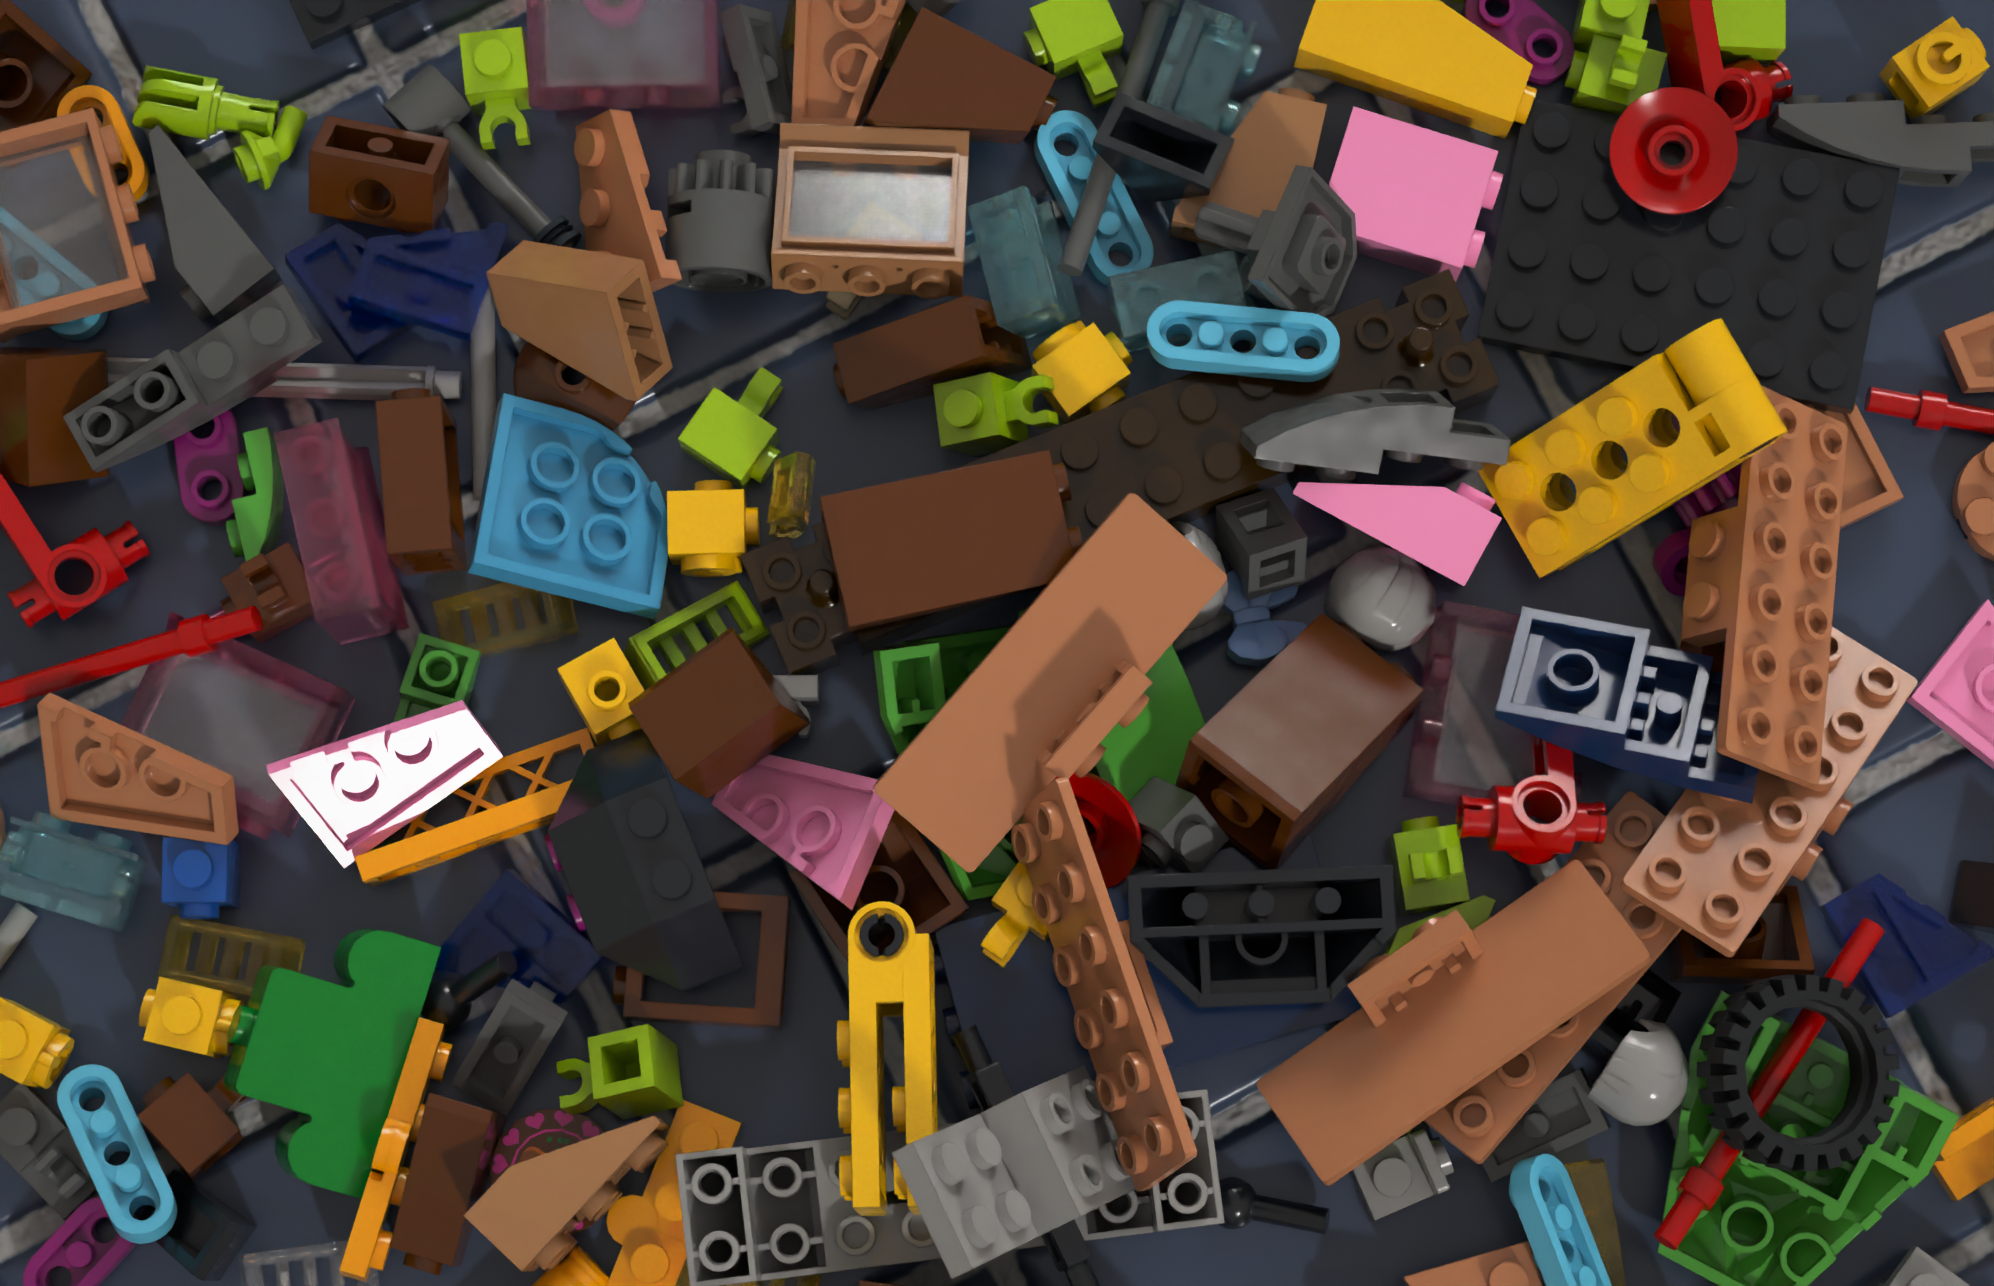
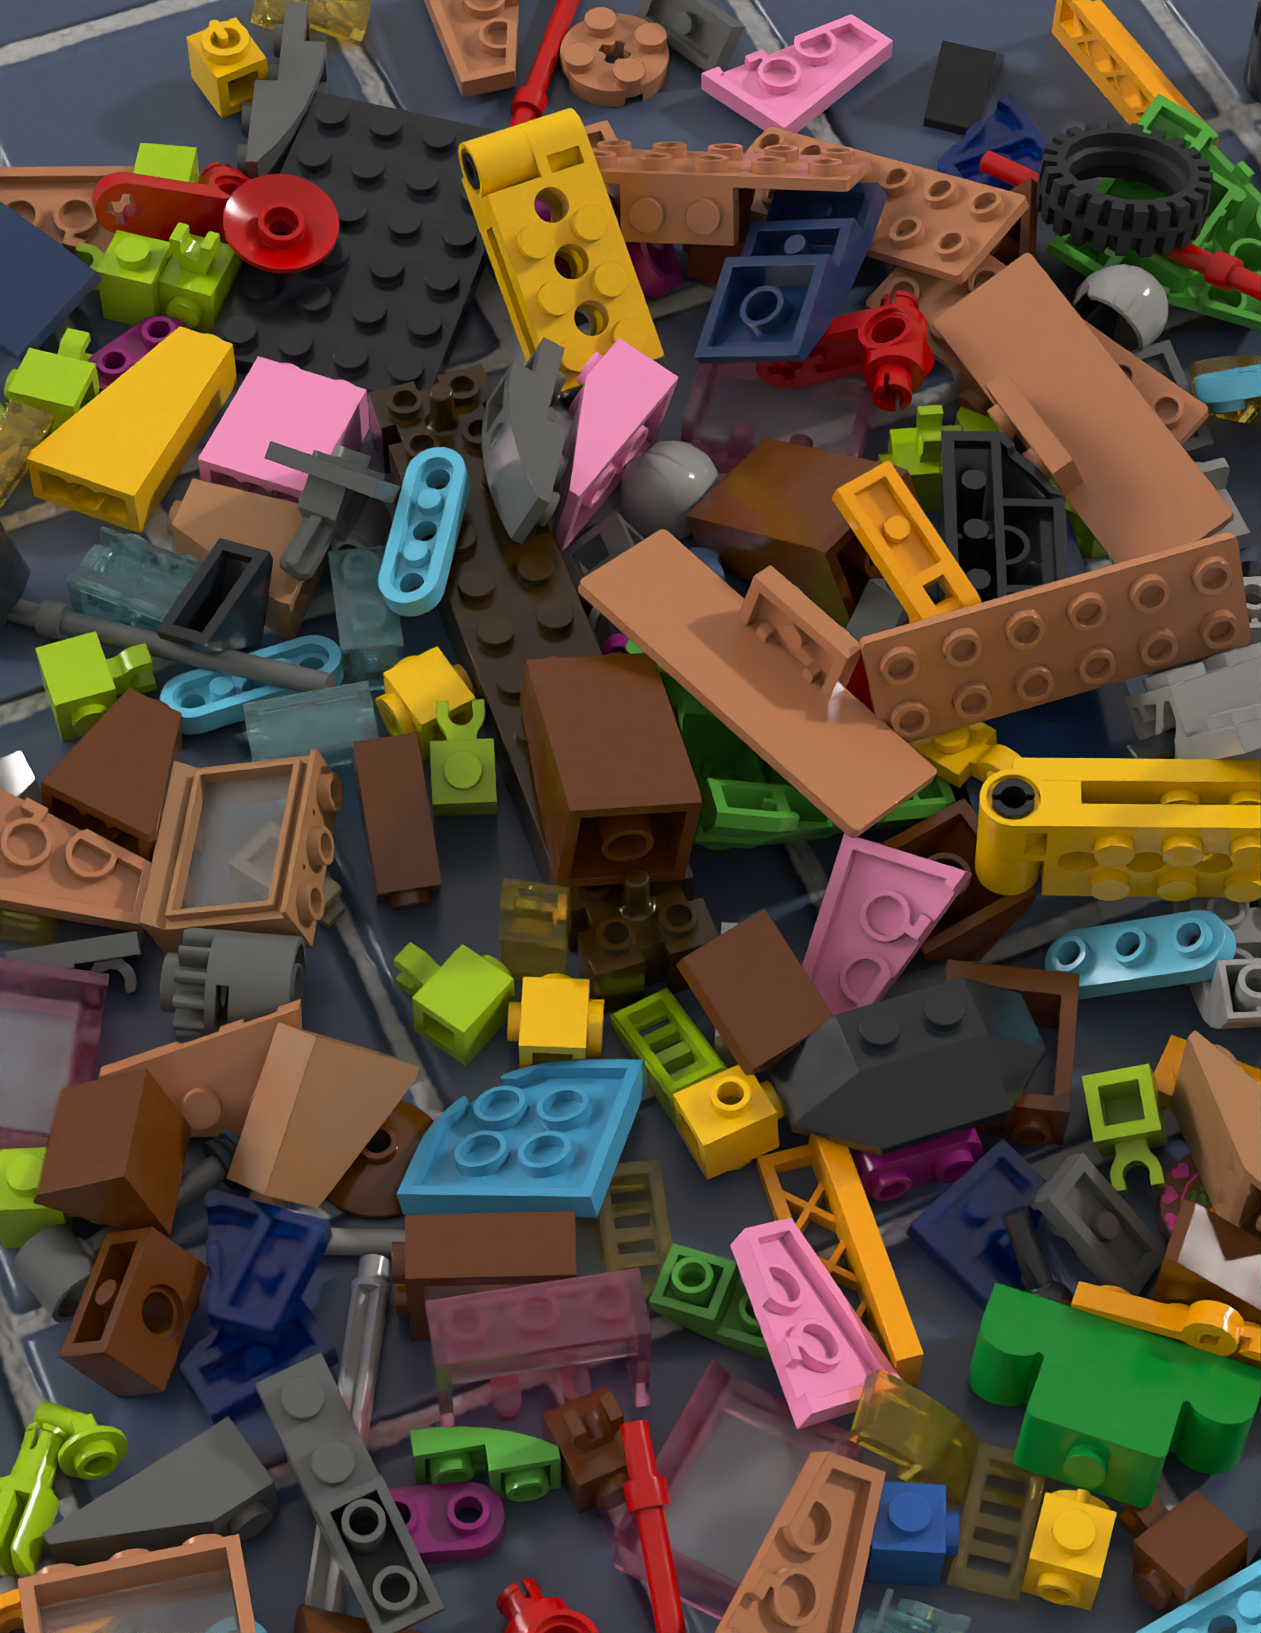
camera: 85 degrees left, 25 degrees down
(288, 877) = (915, 1433): none -> clear yellow slope
(516, 135) = (115, 1153): none -> reddish brown slope
(807, 1104) = (1158, 962): none -> medium azure plate
(1191, 822) = (903, 543): none -> light orange plate

